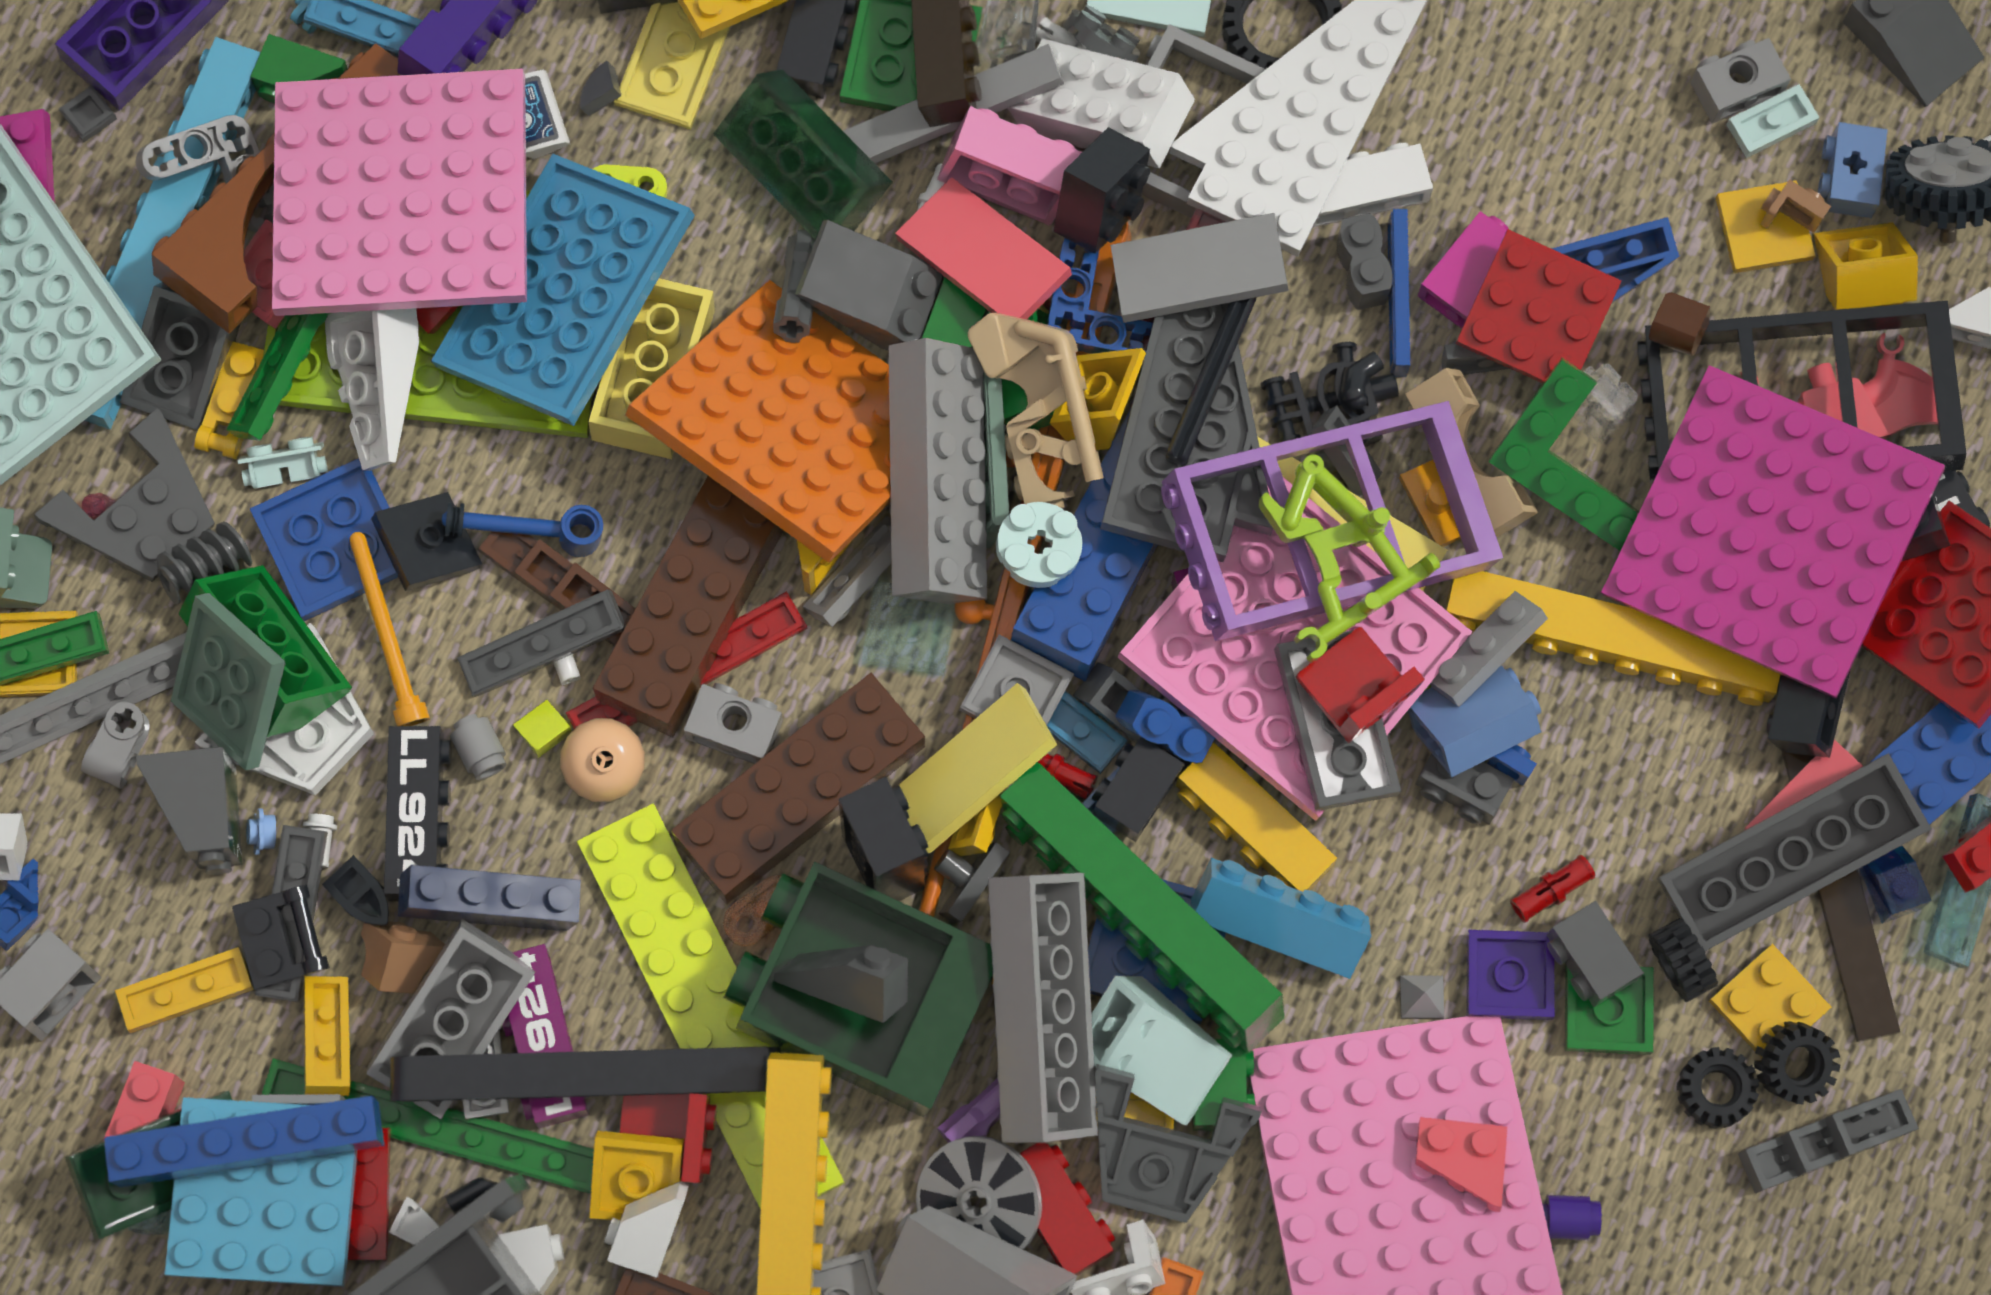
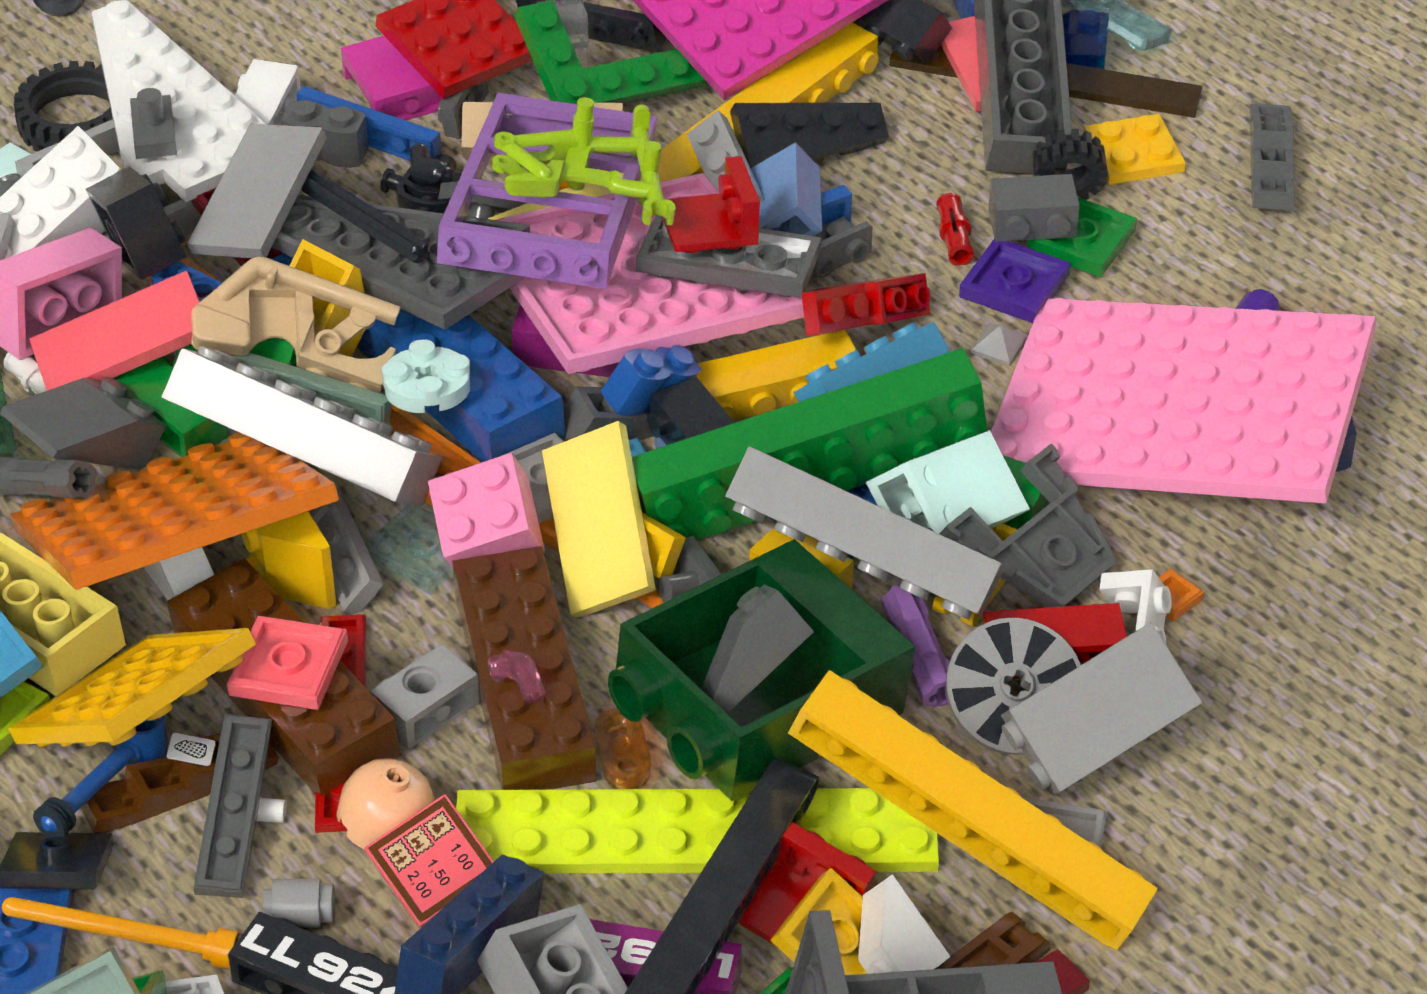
camera: 60 degrees left, 30 degrees down
(543, 728) = (317, 850): neon yellow slope -> none
(560, 826) = (429, 859): none -> tile
(575, 579) = (191, 749): none -> white sticker
(596, 503) = (133, 688): none -> yellow plate
(675, 610) = (288, 663): none -> coral tile
(756, 801) = (520, 668): none -> clear pink arm
(882, 841) = (627, 570): black brick -> none
(929, 674) = (485, 510): none -> bright pink brick
(1245, 125) = (152, 124): none -> dark grey tile
(1382, 858) = (865, 303): none -> red slope
(1465, 1155) = (1168, 334): coral wing -> none
(1594, 686) = (815, 127): none -> black wing
(1735, 1069) = (1189, 212): black tyre -> none
(1818, 1068) = (1196, 139): black tyre -> none

